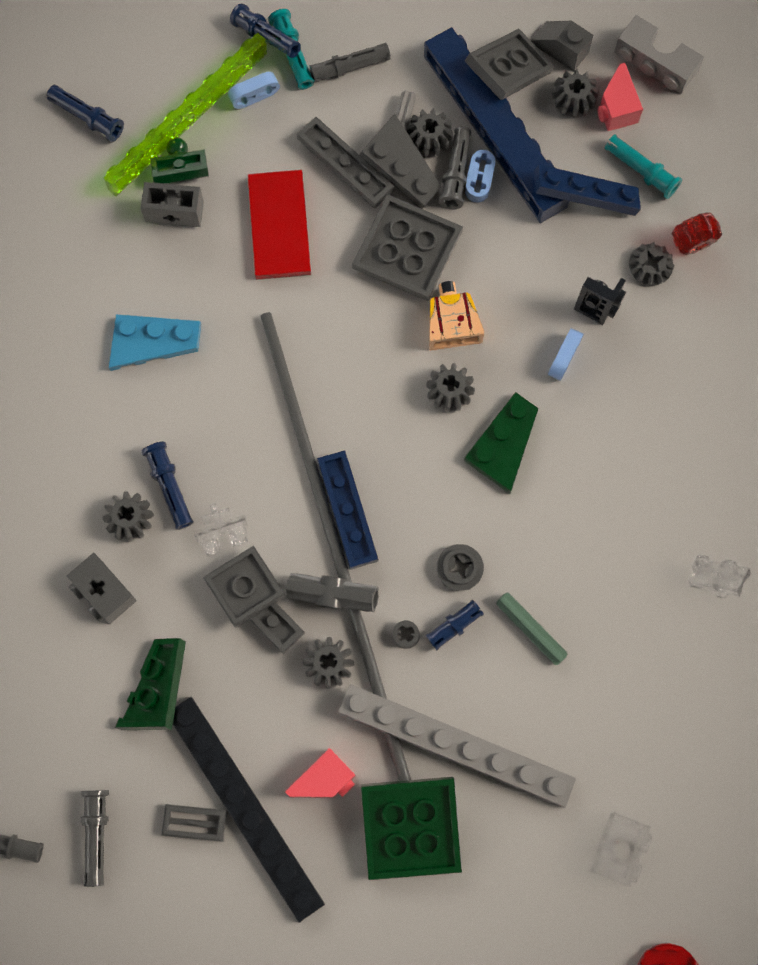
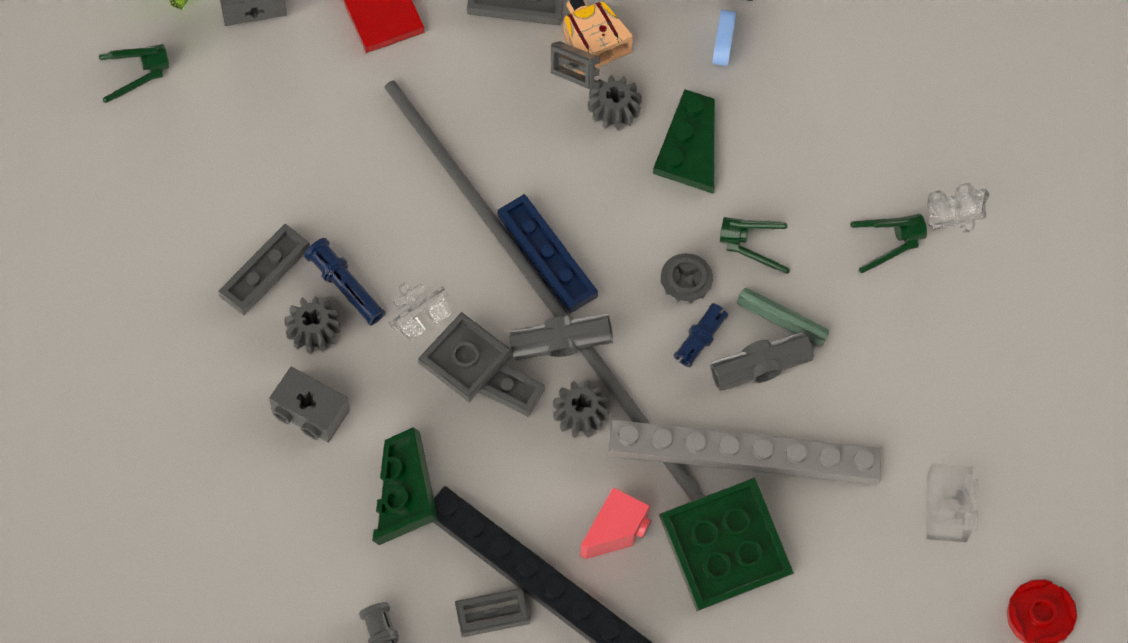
camera: 20 degrees left, 10 degrees down
(73, 234) = (152, 58): none -> dark green plant
(105, 453) = (264, 269): none -> dark grey plate
(150, 338) = (270, 141): dark azure wing -> none
(407, 625) = (650, 351): dark grey bush -> none
(425, 345) = (574, 59): none -> dark grey tile
(499, 665) = (761, 361): none -> dark grey piece
(517, 537) = (736, 231): none -> dark green plant
(667, 579) = (906, 228): none -> dark green plant

